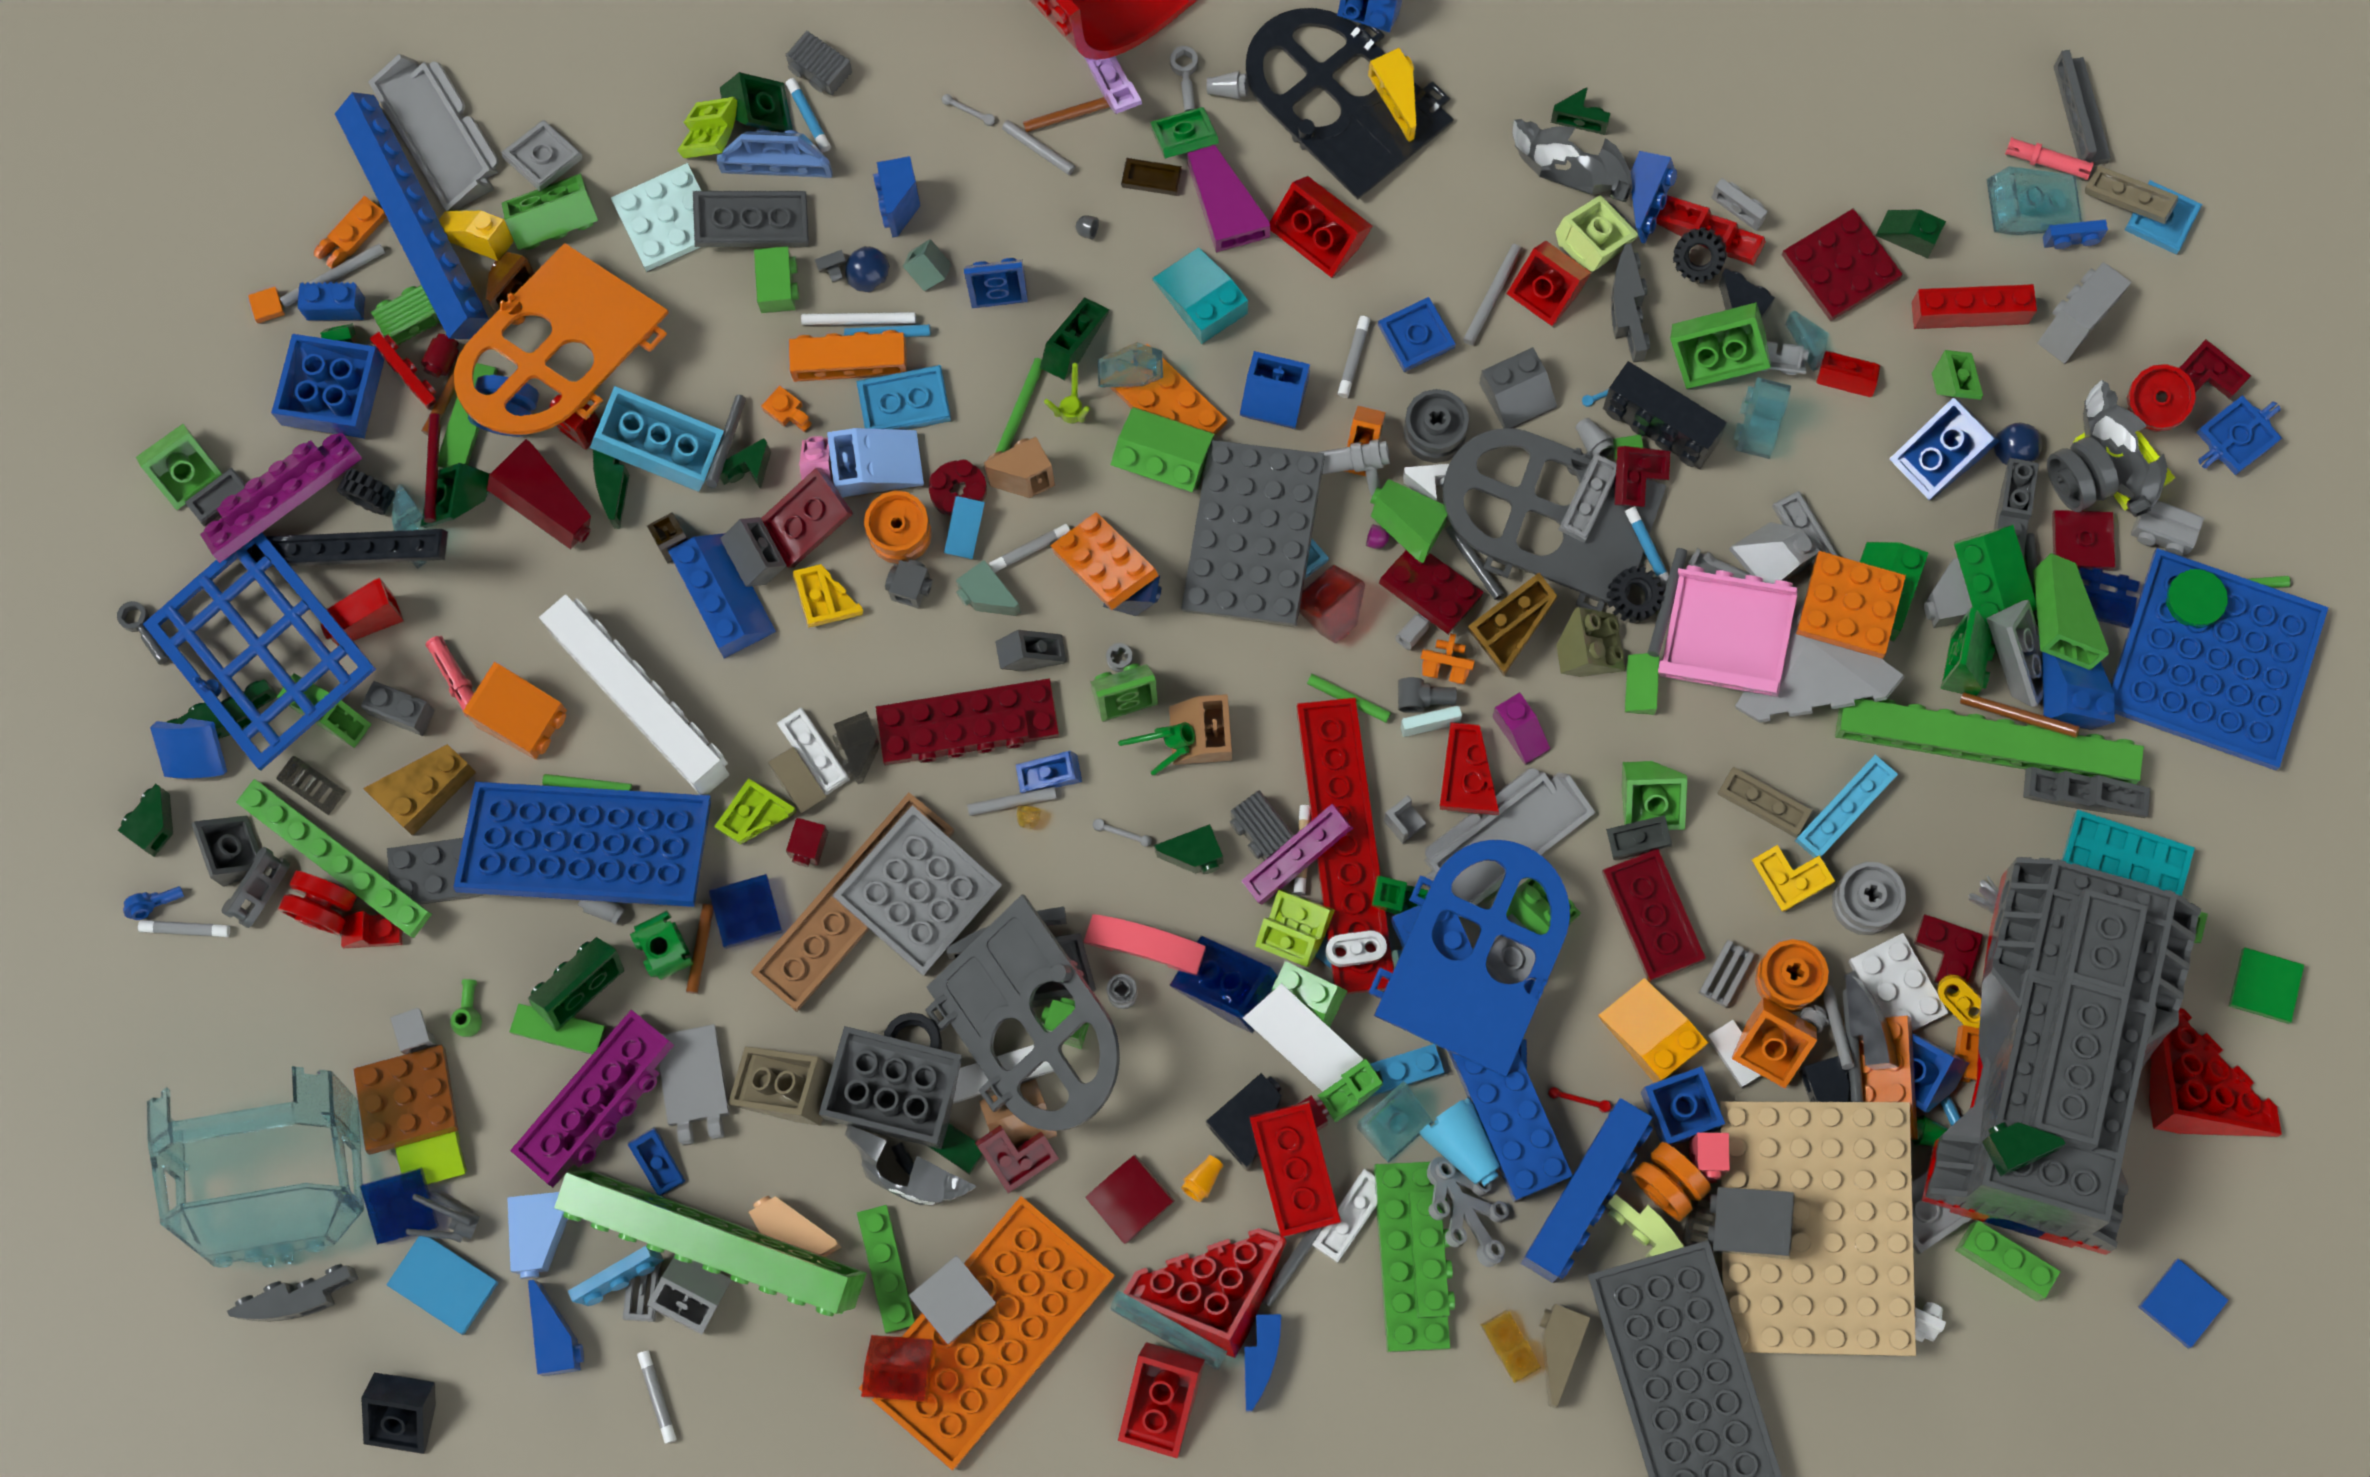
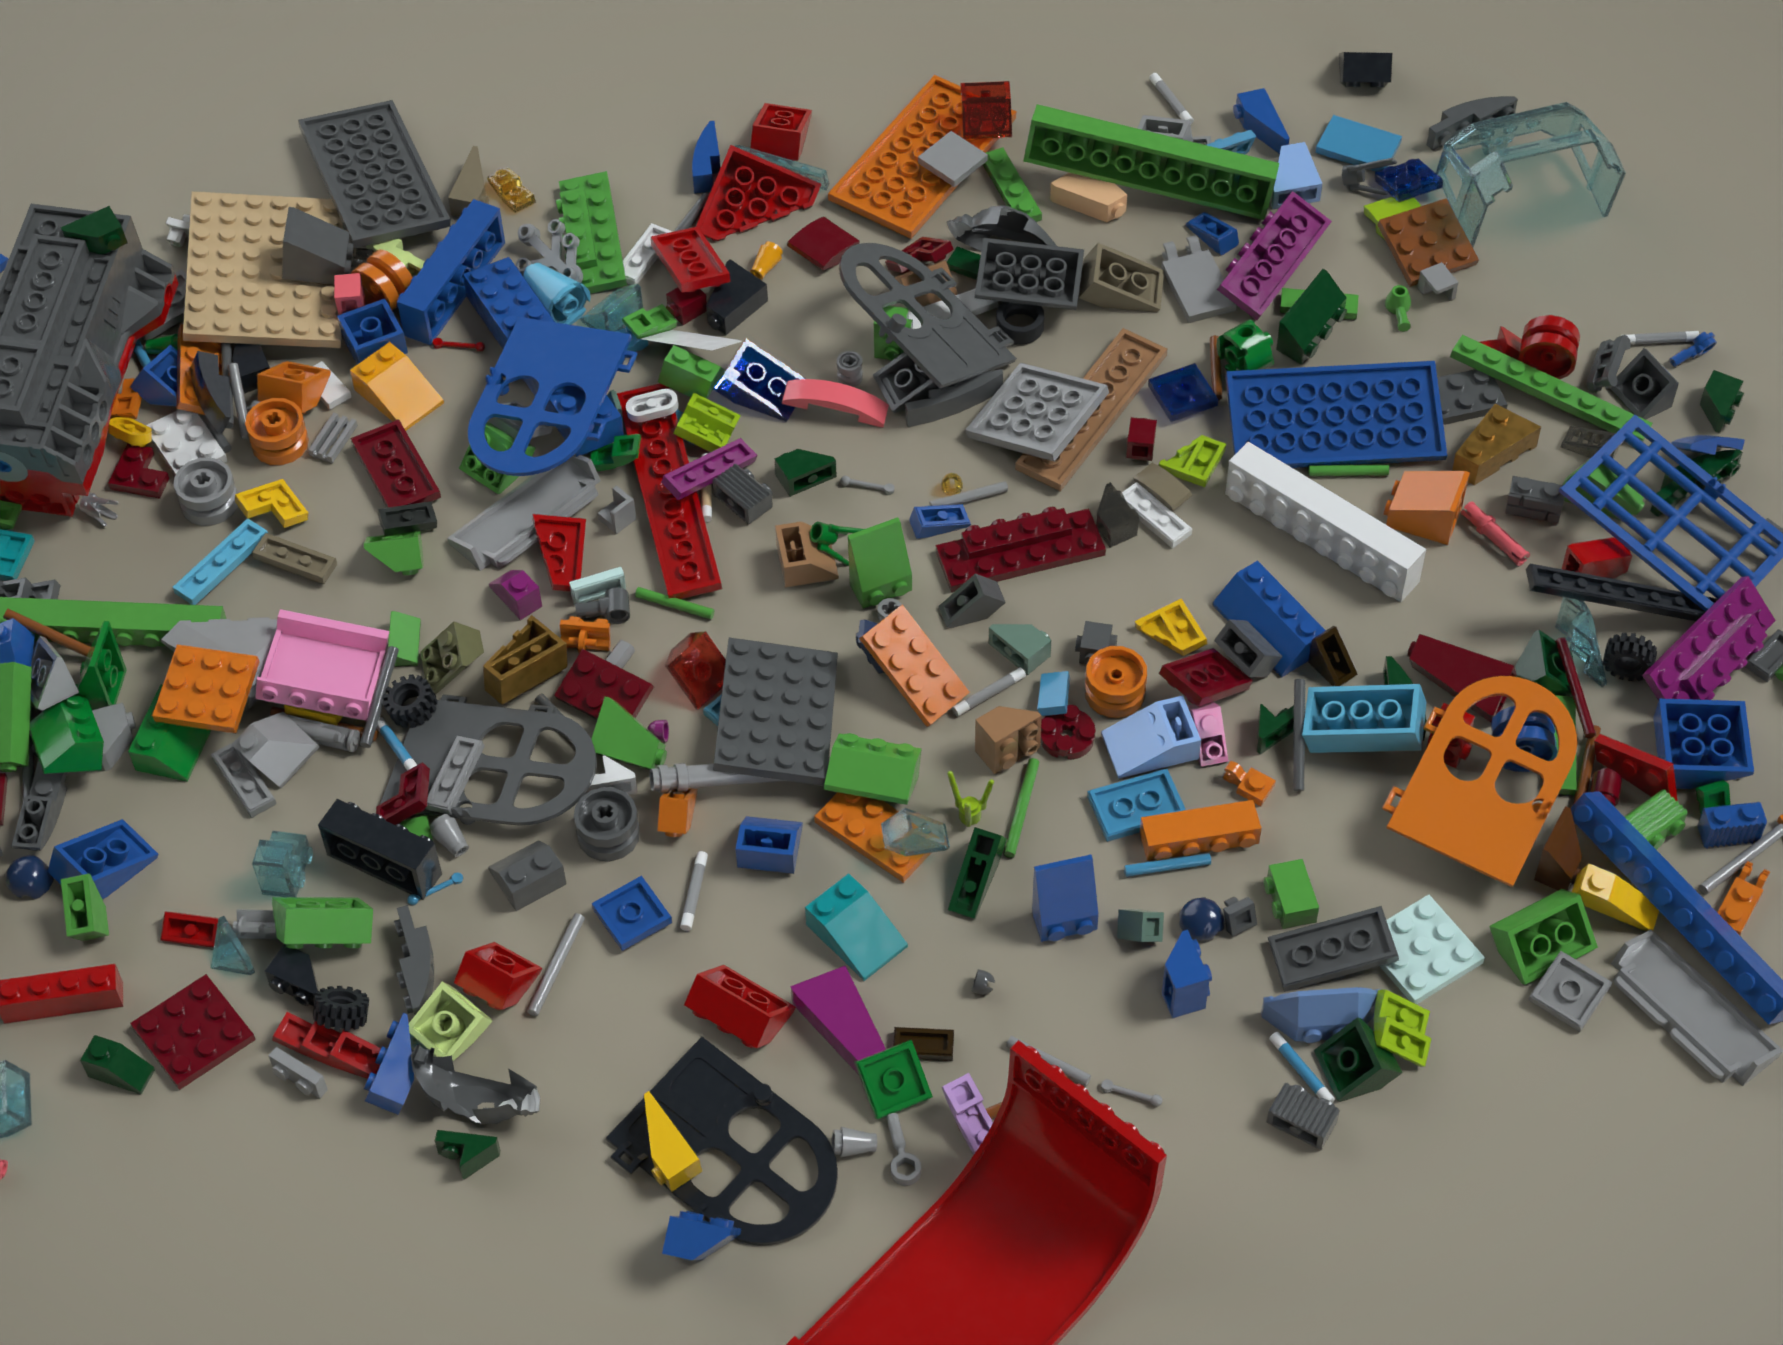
camera: 170 degrees right, 20 degrees down
(859, 318) = (1199, 874): white bar -> none

